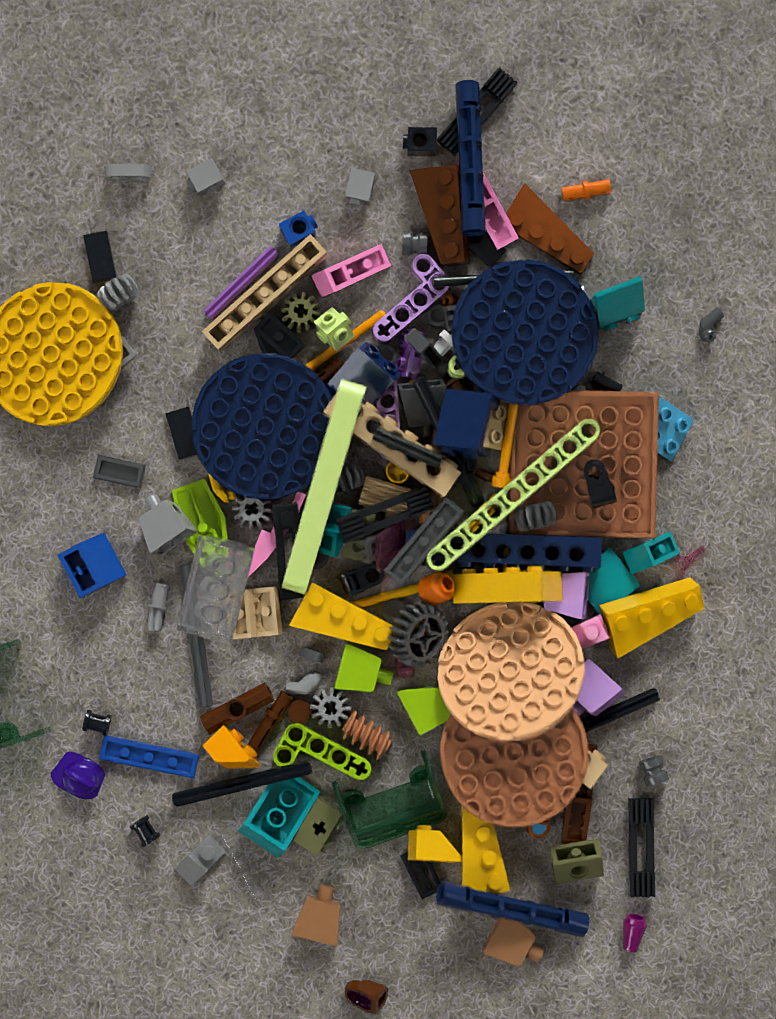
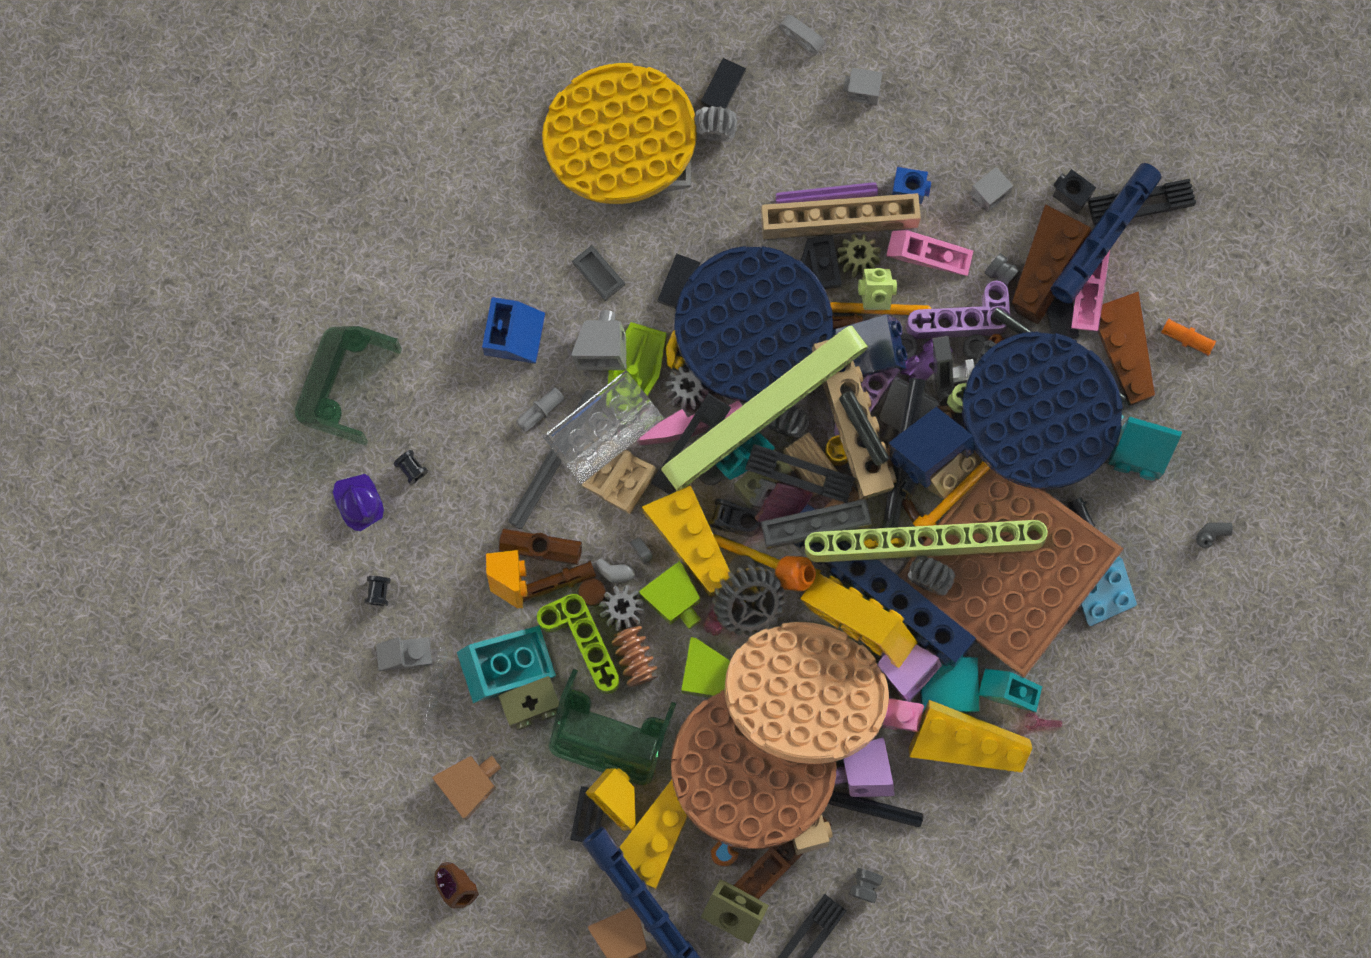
camera: 40 degrees right, 10 degrees down
(149, 756) = (432, 531): blue tile -> none
(242, 783) = (494, 613): black axle -> none
(599, 488) = (1007, 594): black piece -> none

